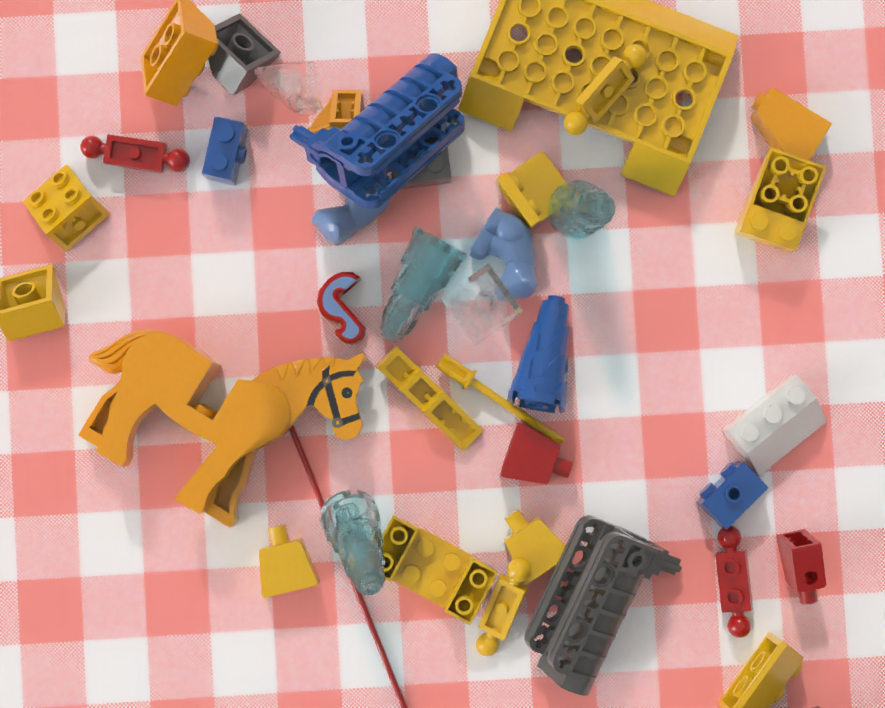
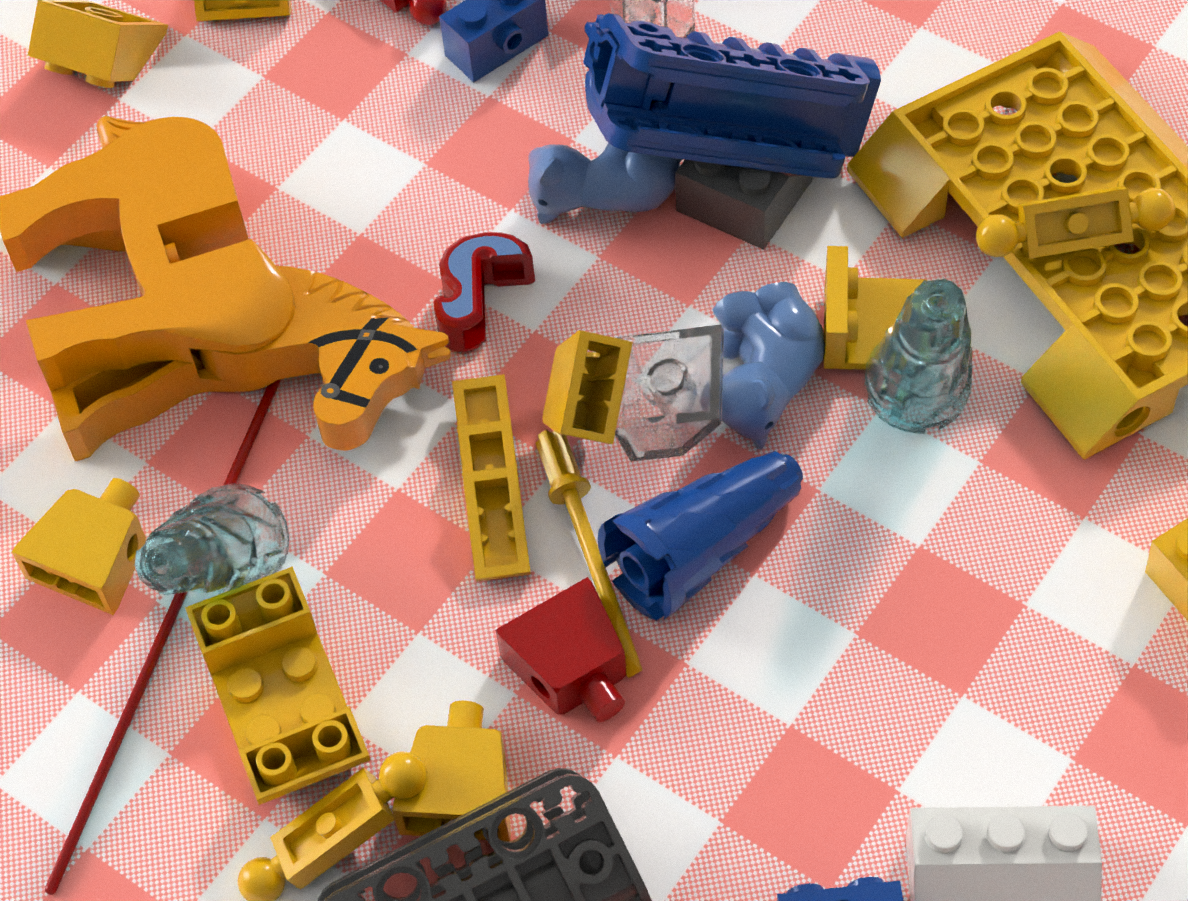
camera: 45 degrees right, 30 degrees down
(423, 272) = (629, 297): clear light blue cone -> none
(449, 336) = (587, 386): none -> yellow torso

